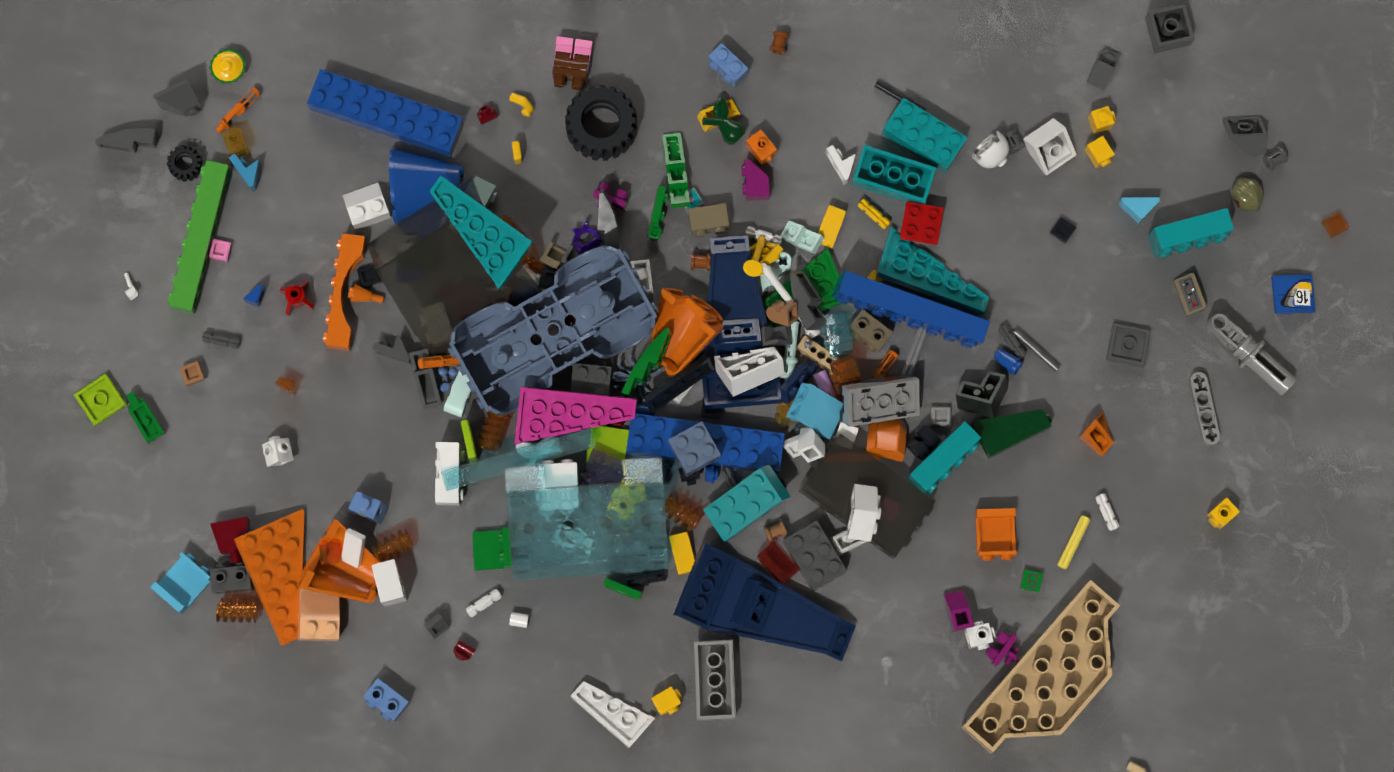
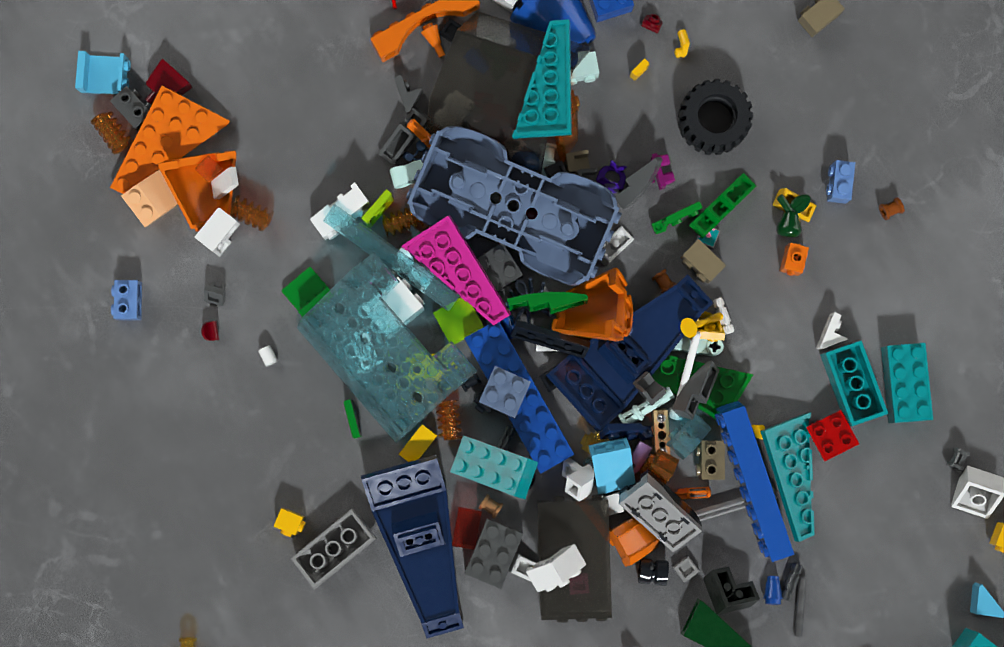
camera: 50 degrees right, 5 degrees up
(277, 451) = (259, 66): white brick -> none
(287, 384) = (317, 34): clear orange plate -> none
(367, 507) = (266, 169): medium blue torso -> none
(483, 603) = (261, 317): white axle -> none
(571, 69) = (740, 57): reddish brown hips -> none
(601, 469) = (434, 331): hinge -> none
(619, 718) = (248, 490): white wing -> none
(645, 578) = (375, 430): black pin -> none
(711, 474) = (498, 419): blue plate -> none
(750, 369) = (604, 387): white wedge -> none
(756, 182) = (763, 276): magenta slope -> none
(783, 313) = (671, 379): medium nougat leg -> none
(801, 237) = (746, 347): light aqua slope -> none
(831, 225) = (772, 363): yellow slope -> none
(874, 213) = (810, 390): yellow axle -> none
(894, 94) = (922, 332): black bar -> none
(944, 458) = (652, 599): teal brick -> none
(992, 151) = (937, 448): white cylinder -> none
(1062, 230) = (916, 554): black tile -> none

